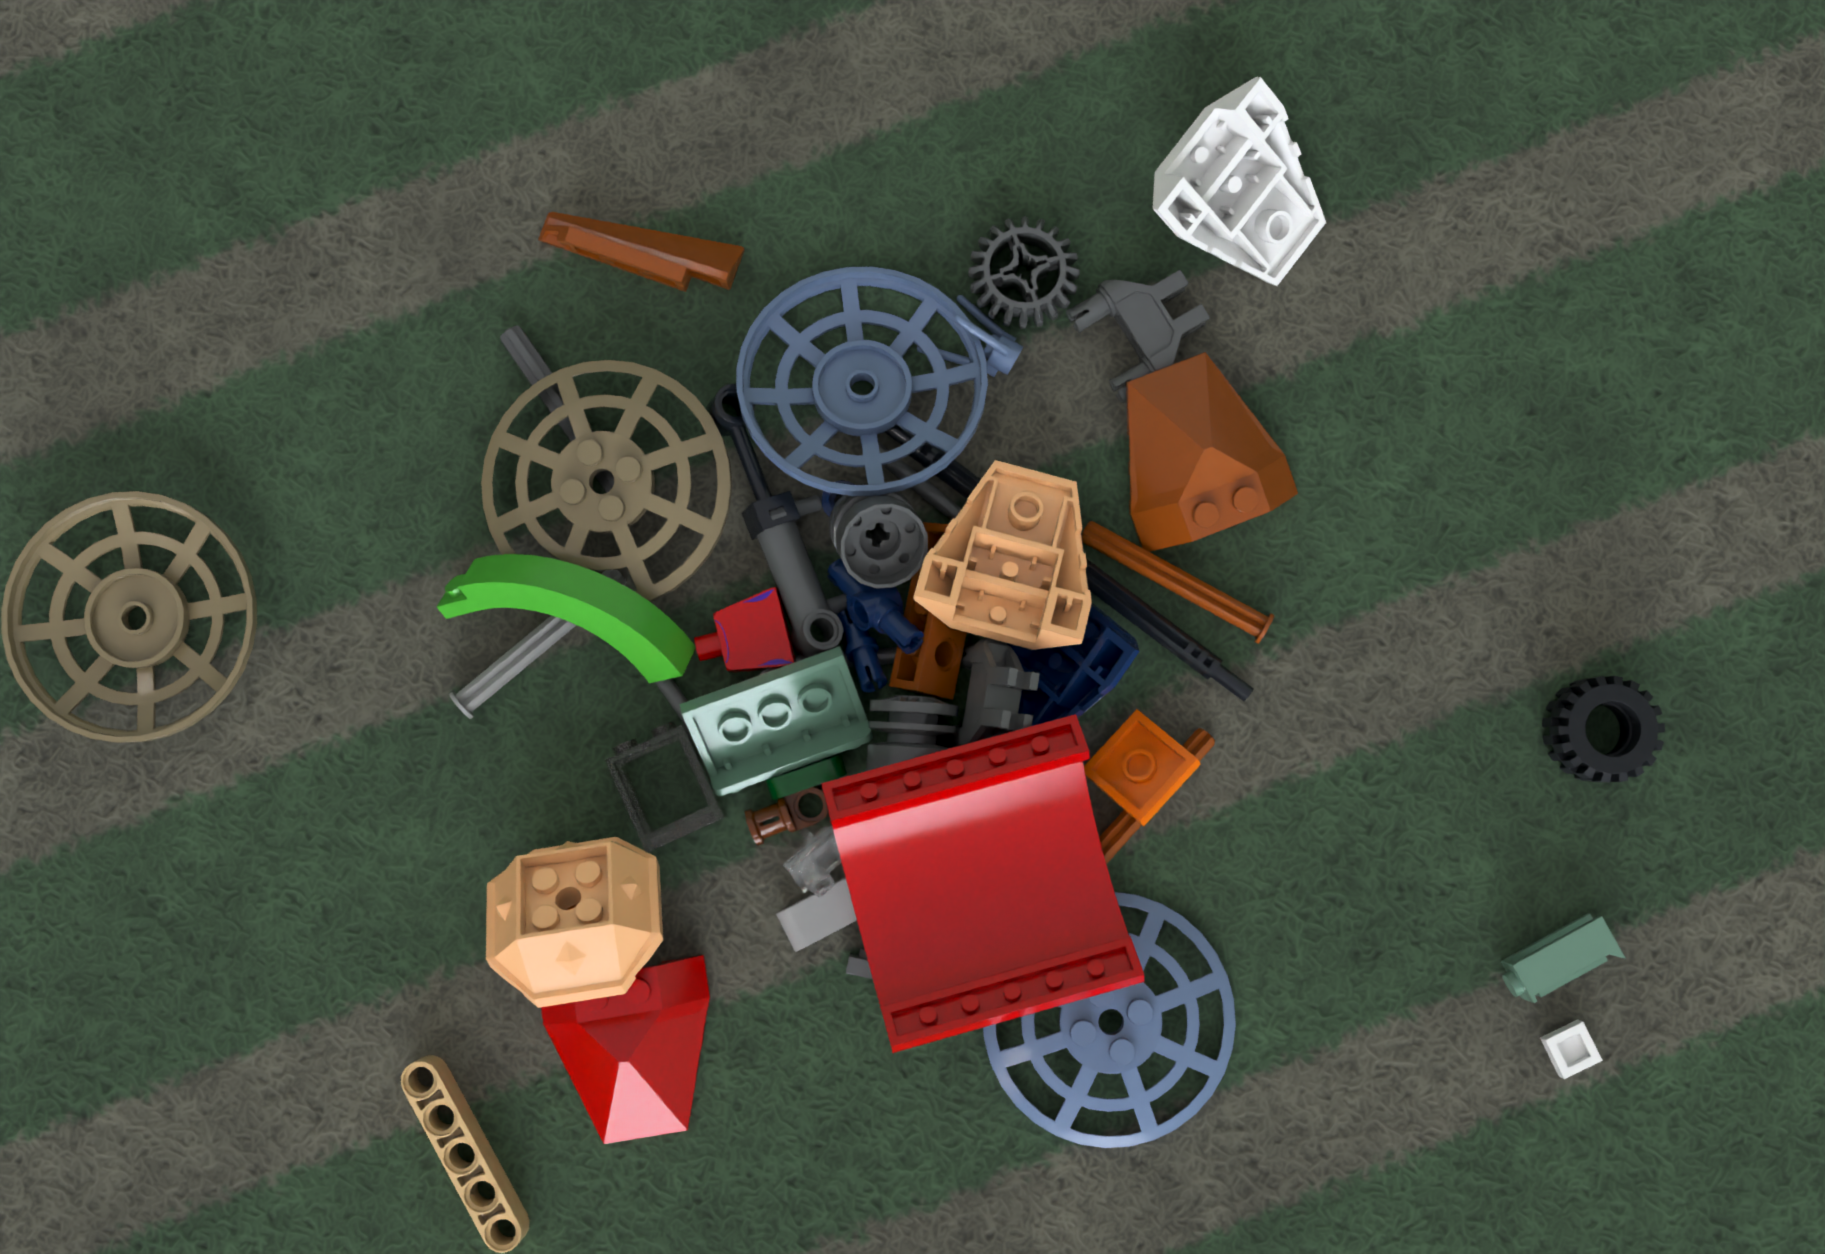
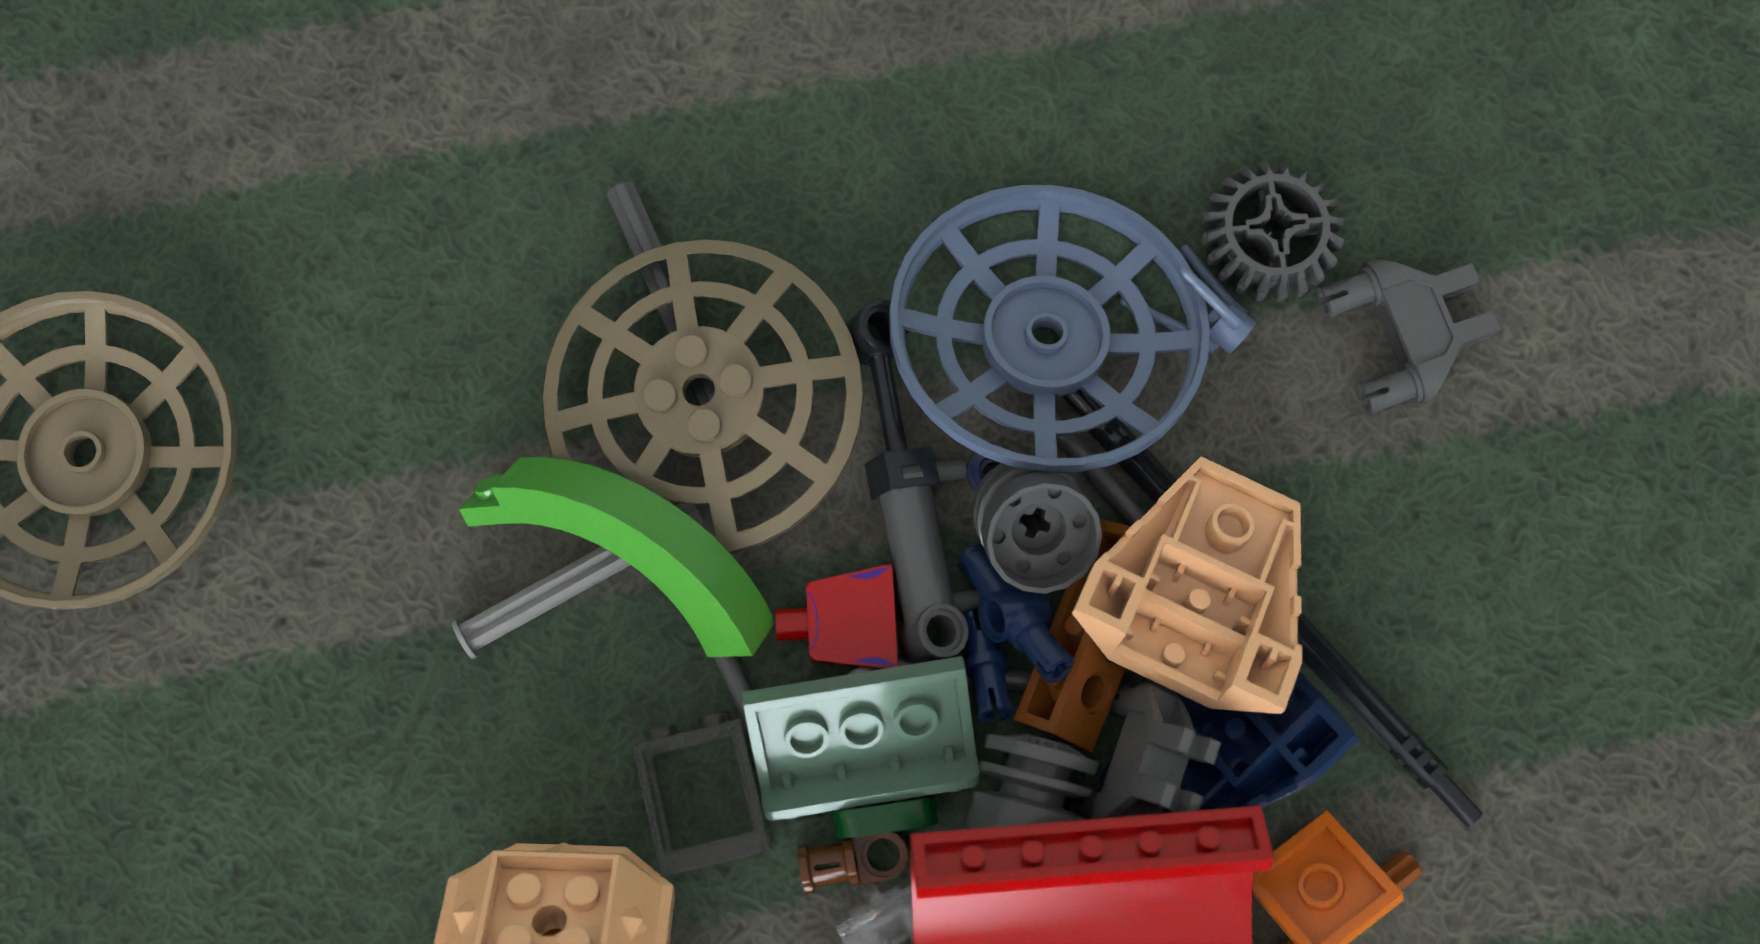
camera: 10 degrees right, 5 degrees down
(645, 252) = (804, 122): dark orange wedge -> none
(1177, 580) = (1408, 656): dark orange axle -> none
(1197, 456) = (1456, 501): dark orange wedge -> none
(1240, 185) = (1566, 170): white wedge -> none

